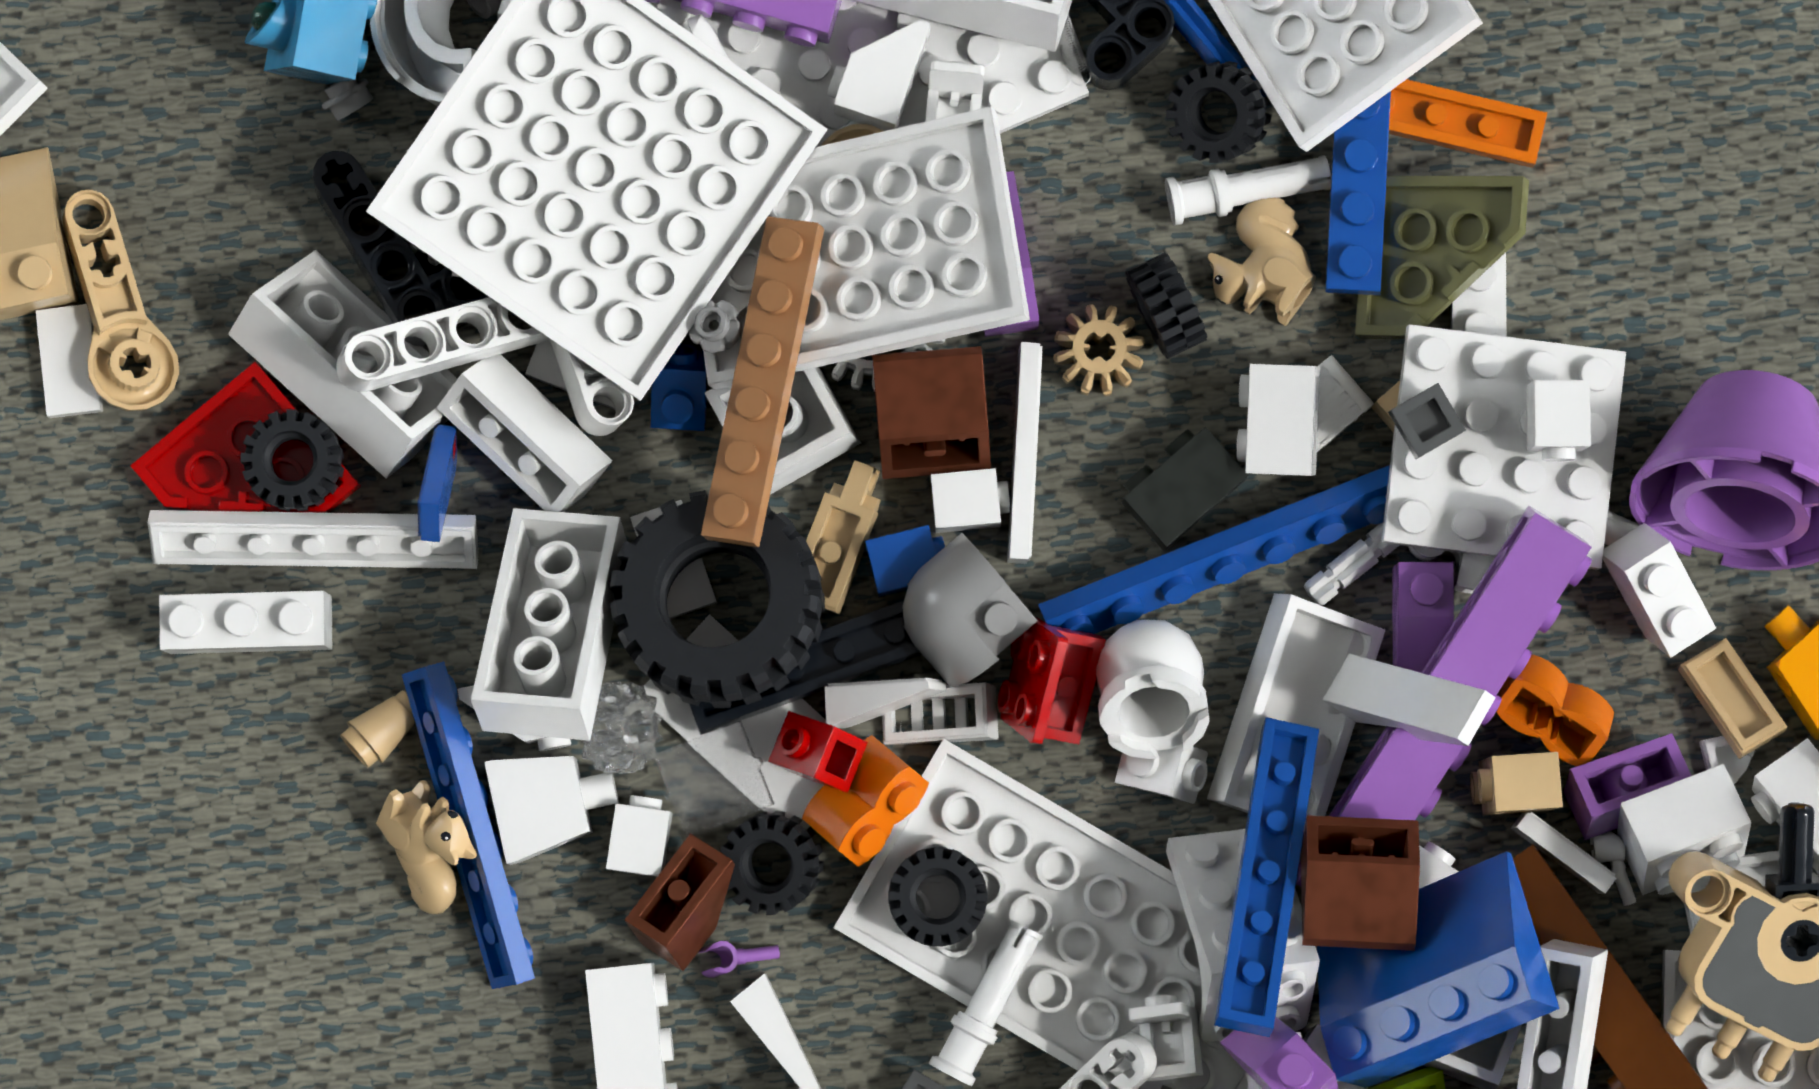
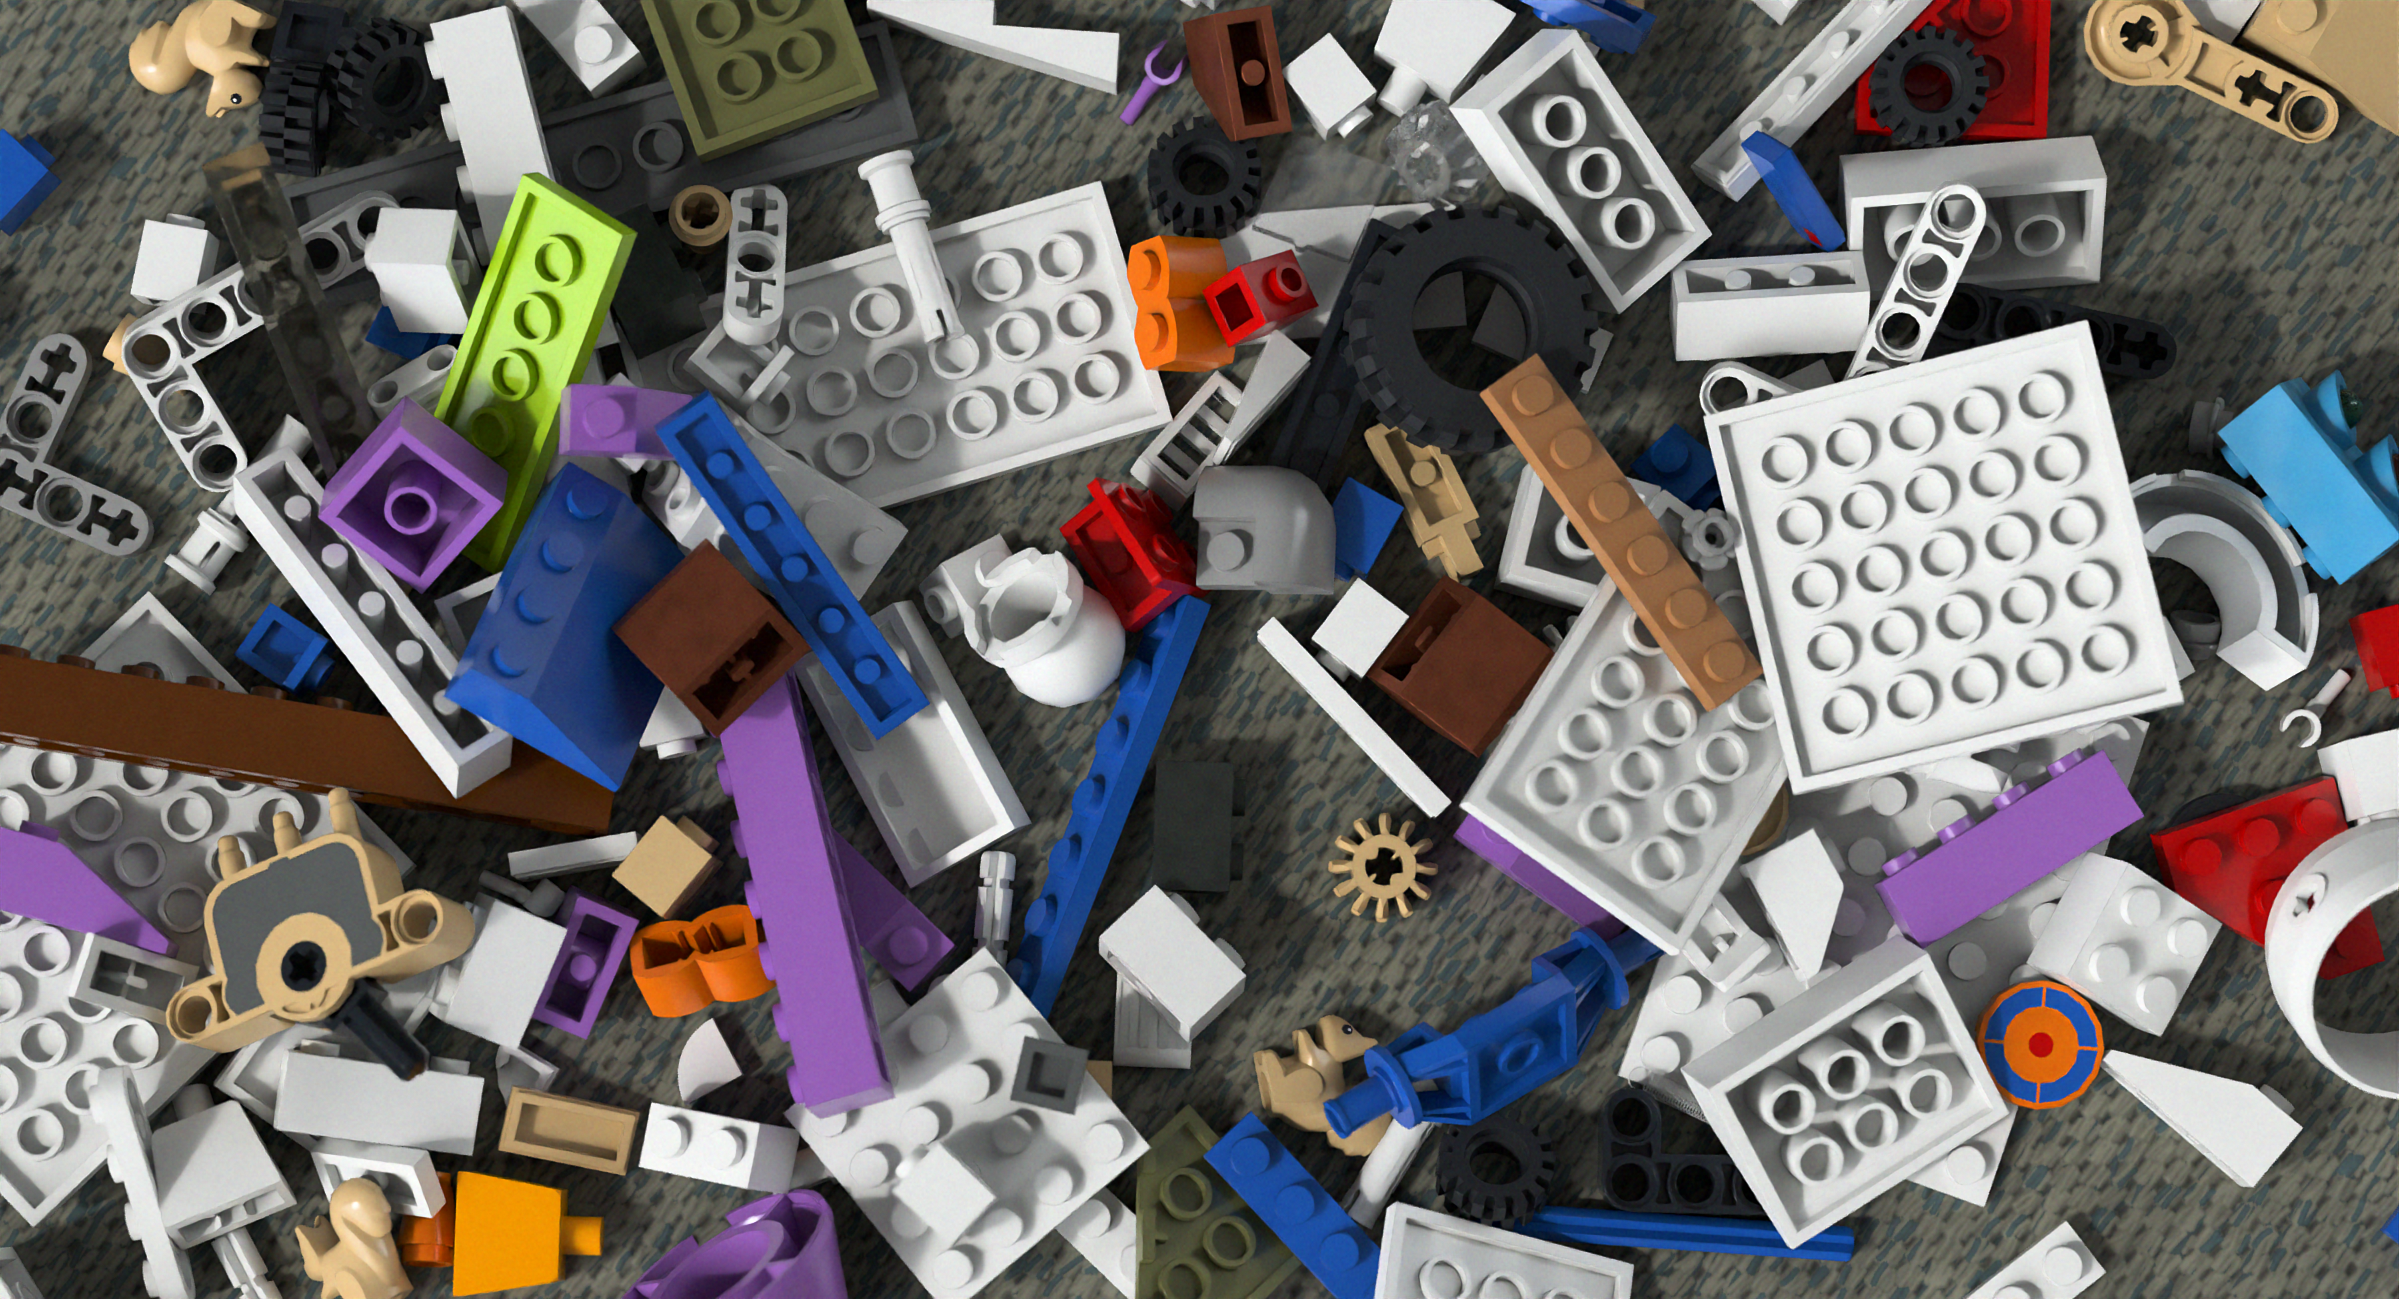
camera: 130 degrees right, 0 degrees up
(930, 863) = (1031, 249): black tyre -> none
(1151, 167) = (1498, 1052): none -> blue plate
(1166, 305) = (1366, 958): black tyre -> none
(1408, 700) = (825, 828): white slope -> none
(1610, 653) = (706, 1063): none -> white tile

